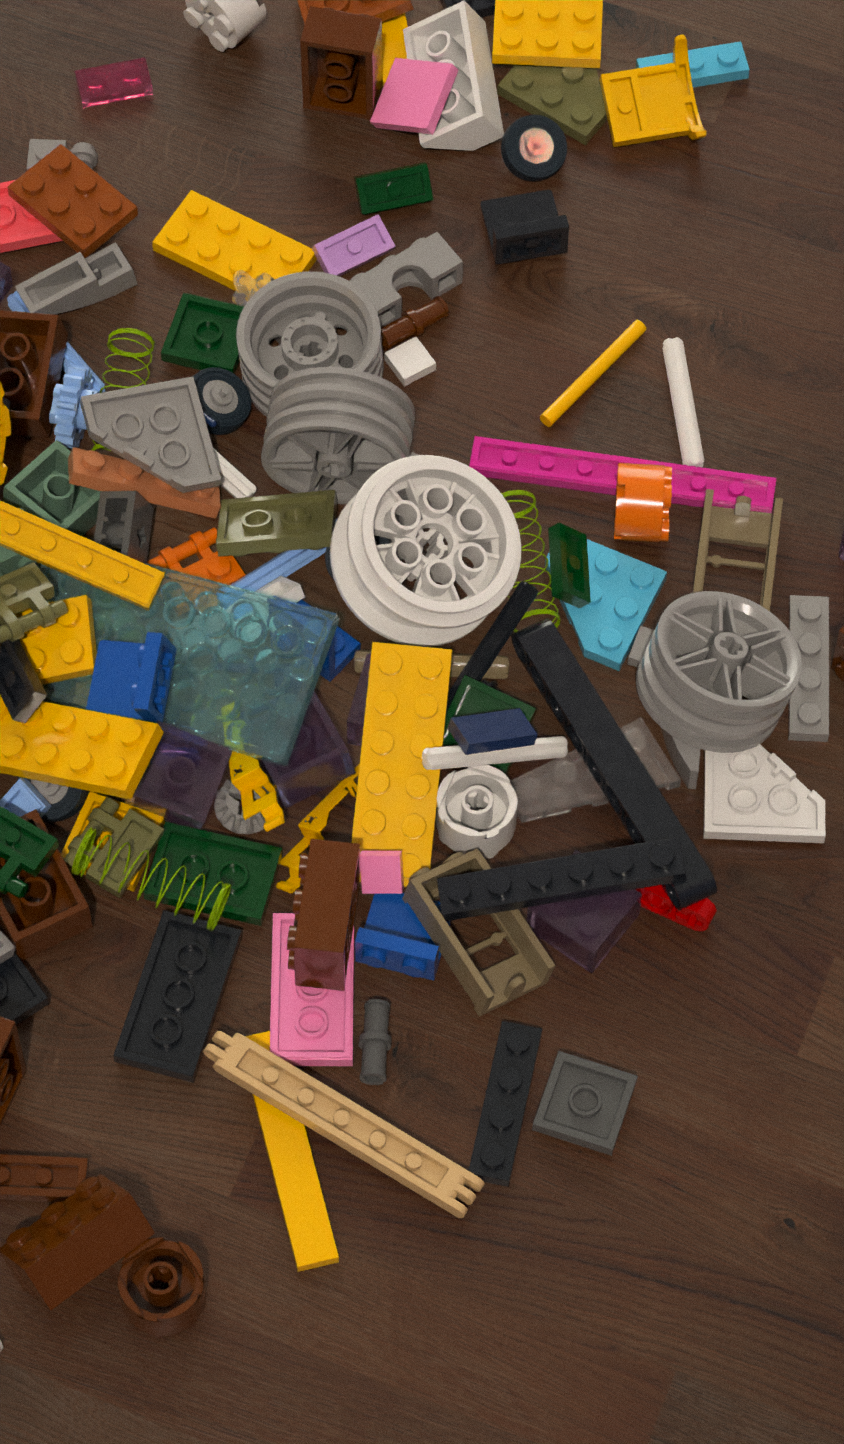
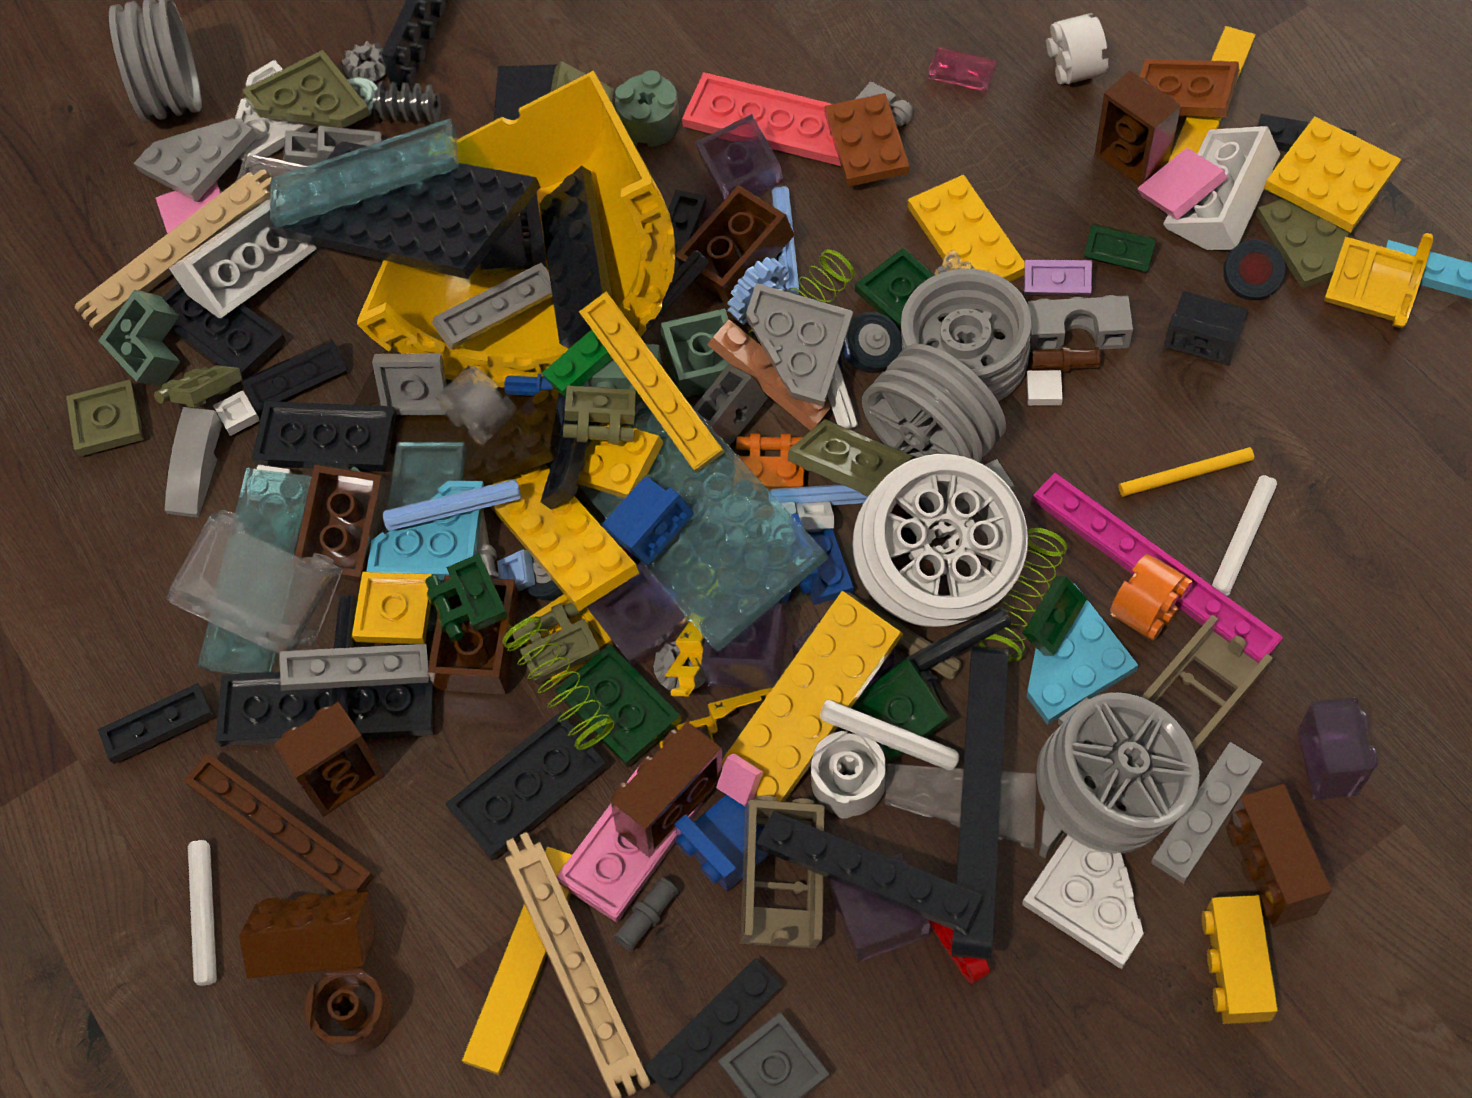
camera: 40 degrees right, 0 degrees up
(78, 282) = (830, 202): light grey slope -> none
(492, 731) = (894, 716): dark blue tile -> none

